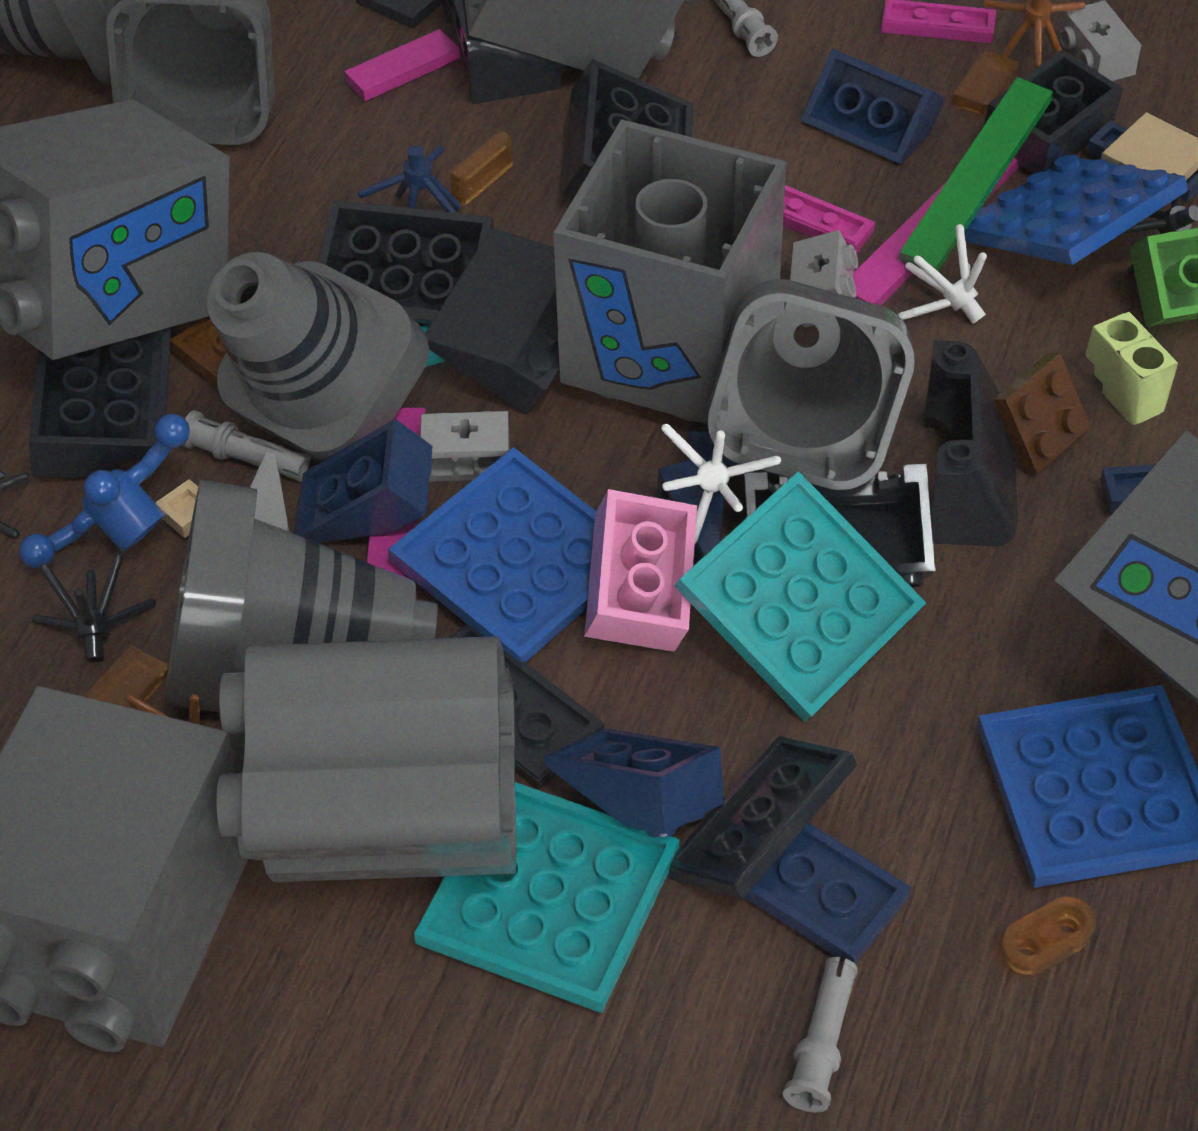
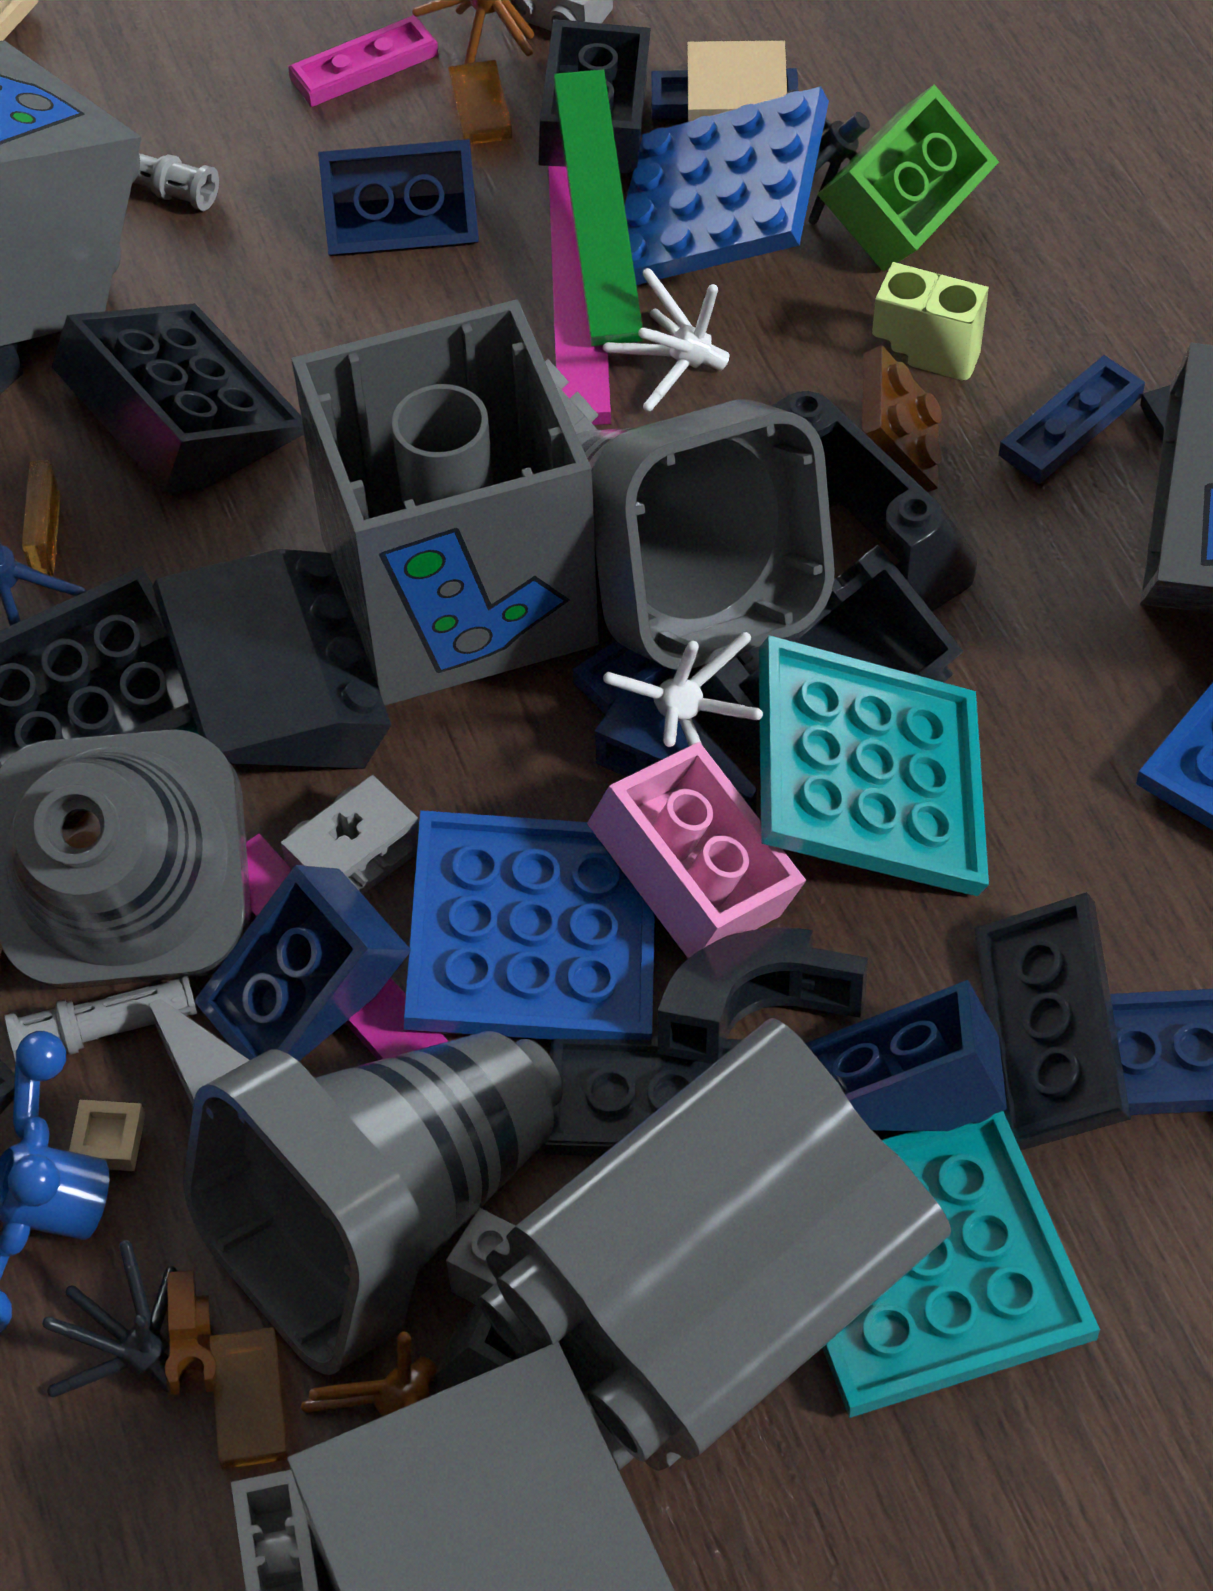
camera: 40 degrees left, 5 degrees up
(121, 628) = (187, 1320): none -> reddish brown plate
(599, 660) = (751, 974): none -> black arch

